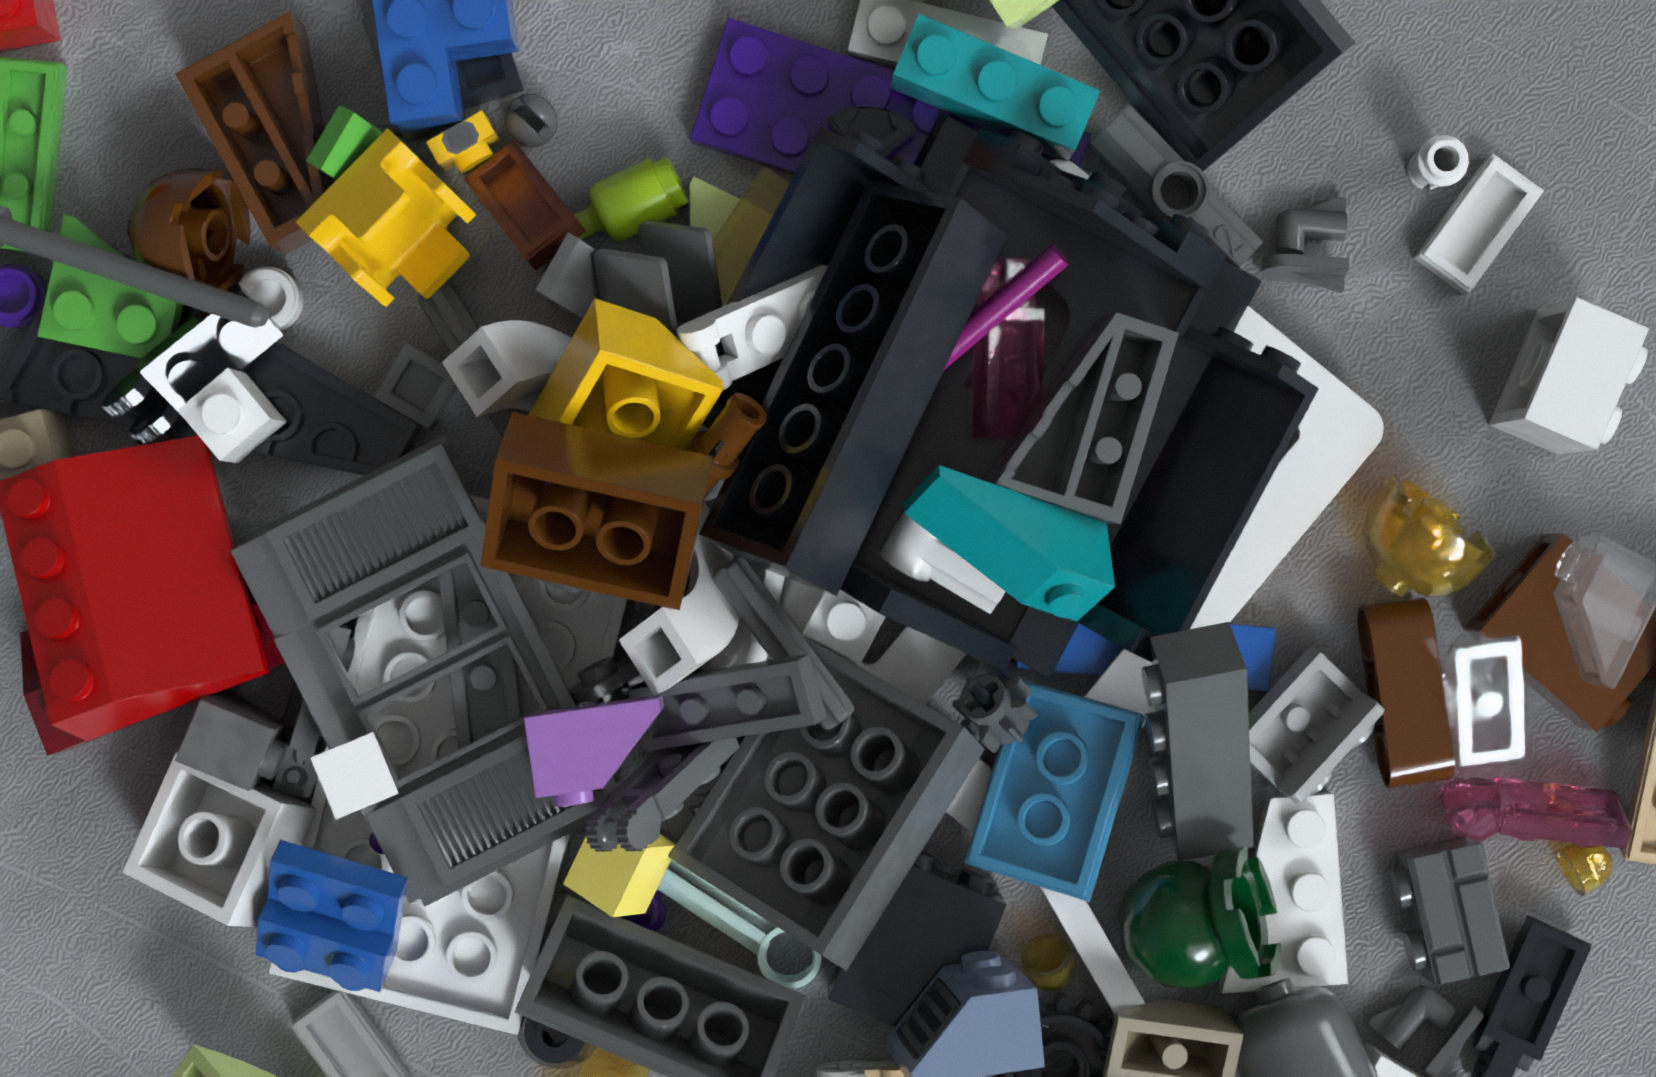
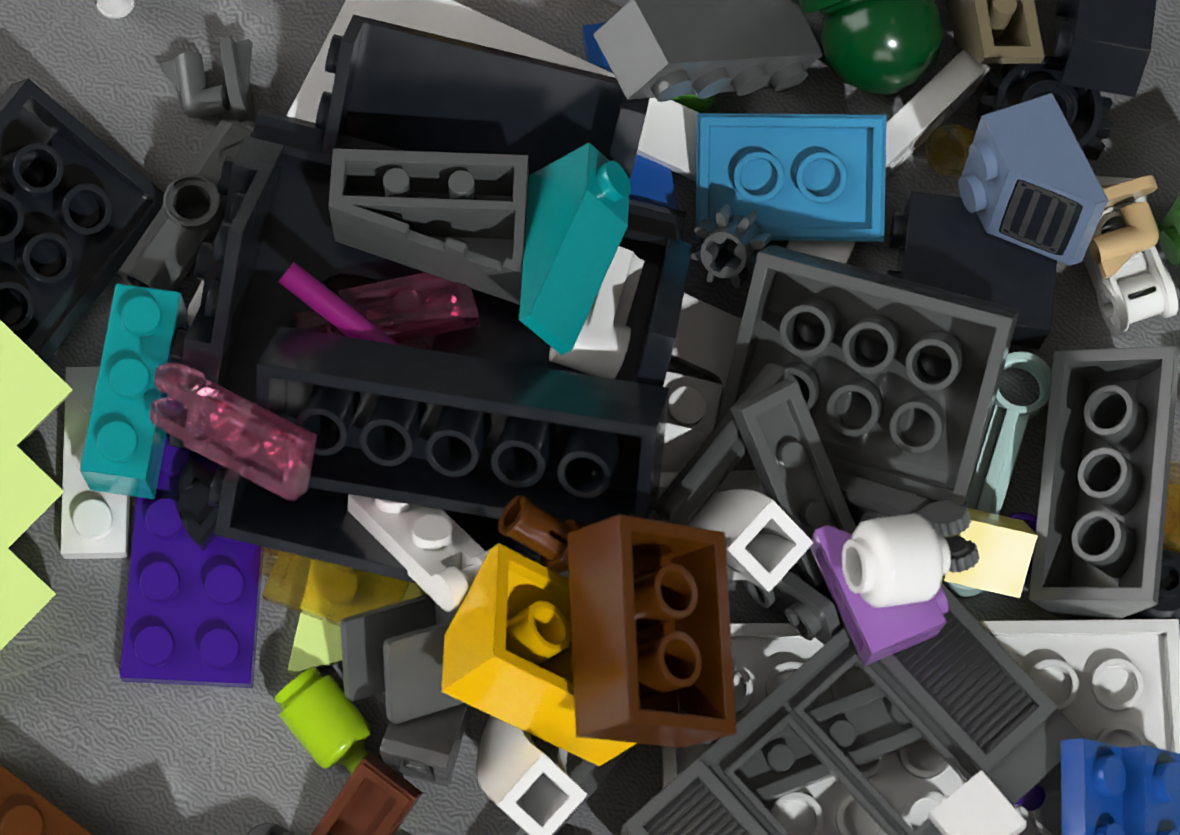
camera: 105 degrees left, 15 degrees down
(598, 763) = (895, 560): none -> white head
(909, 162) = (233, 431): none -> clear pink hinge

